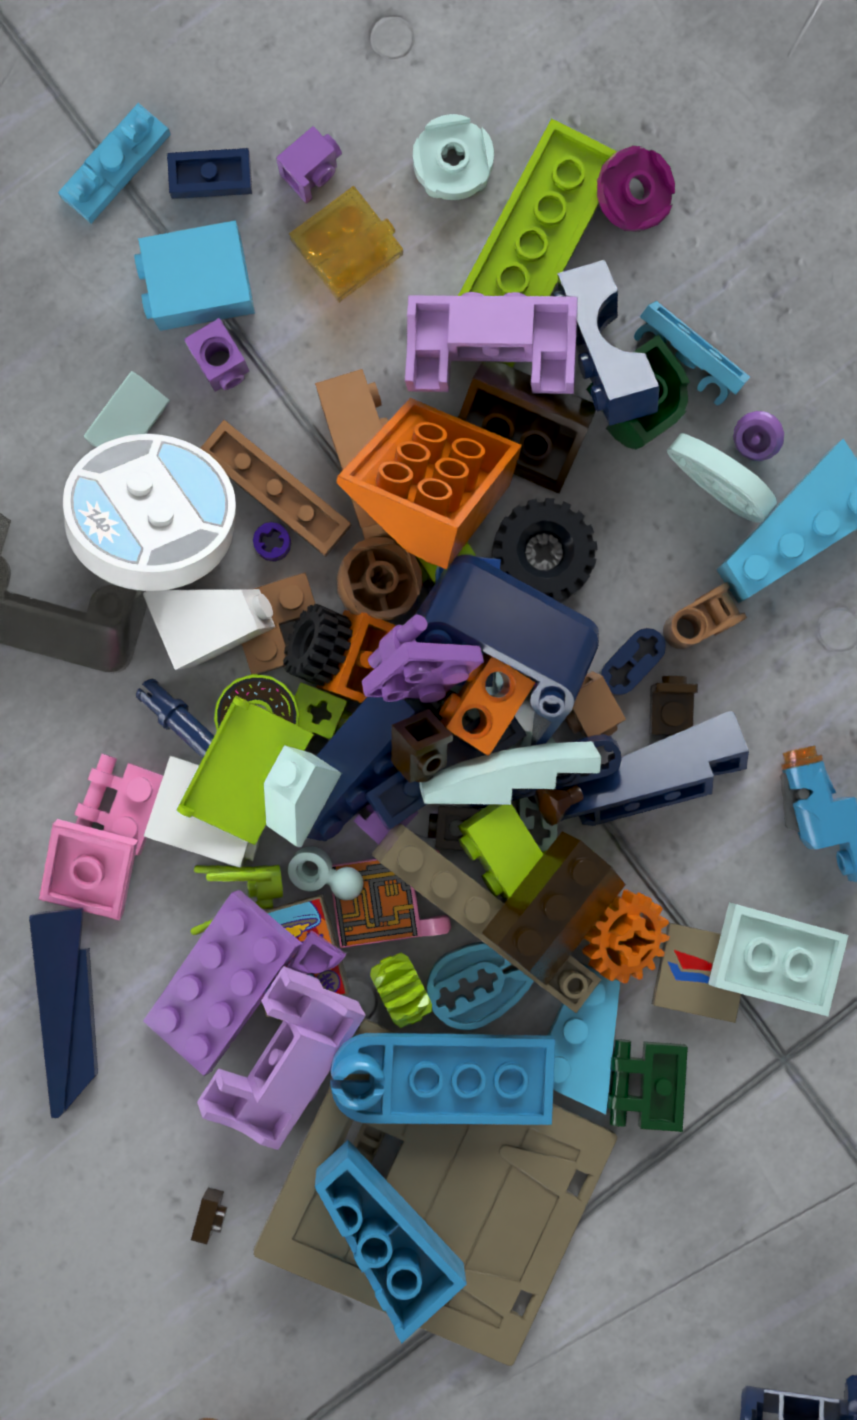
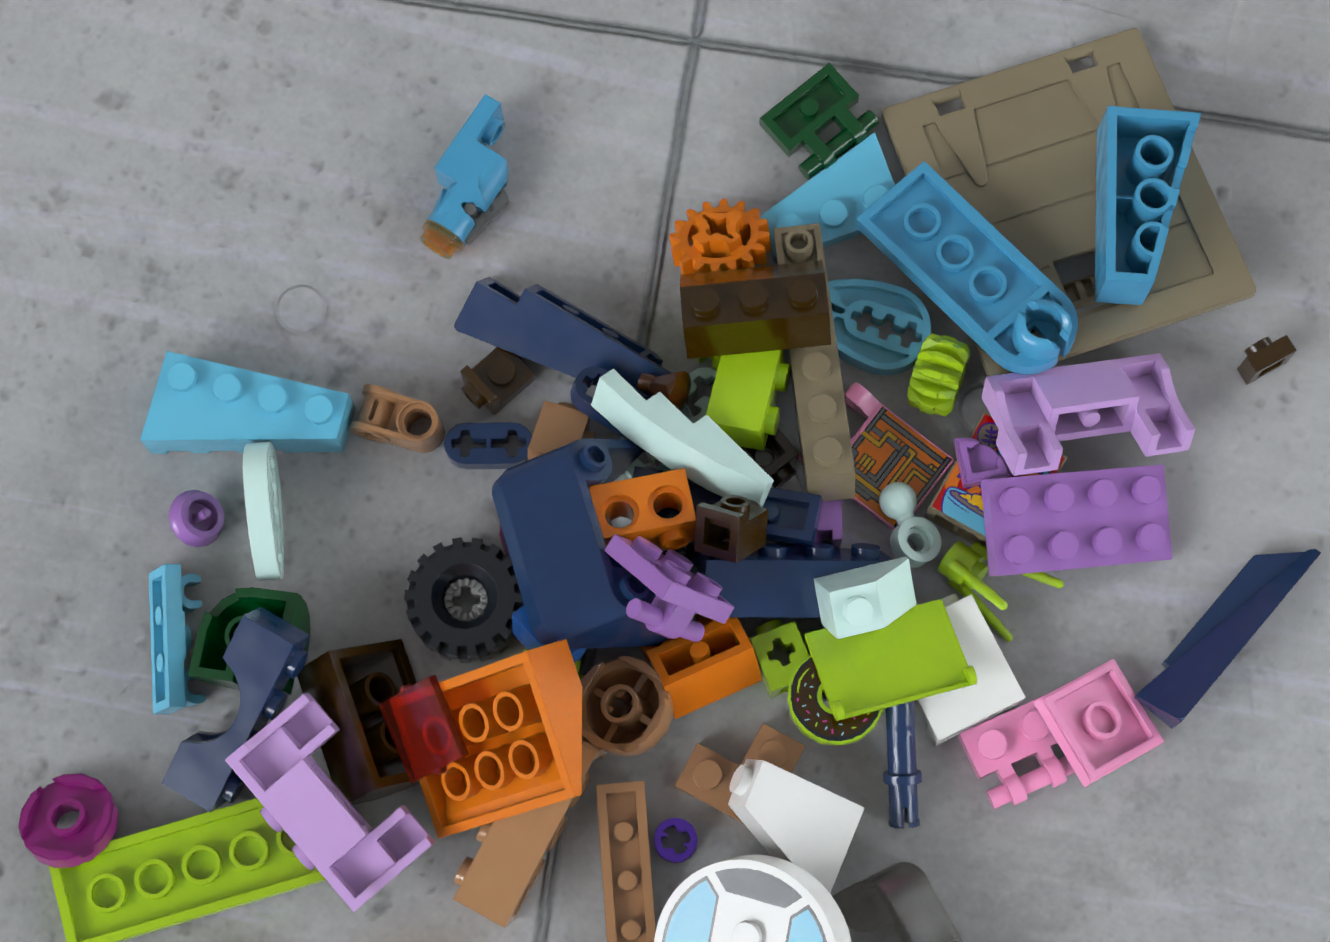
camera: 125 degrees left, 10 degrees down
(317, 645) = (727, 707): black tyre -> none
(482, 442) = (423, 729): none -> clear red piece
(686, 974) = (689, 162): dark tan tile -> none
(778, 959) = (622, 112): light aqua plate -> none

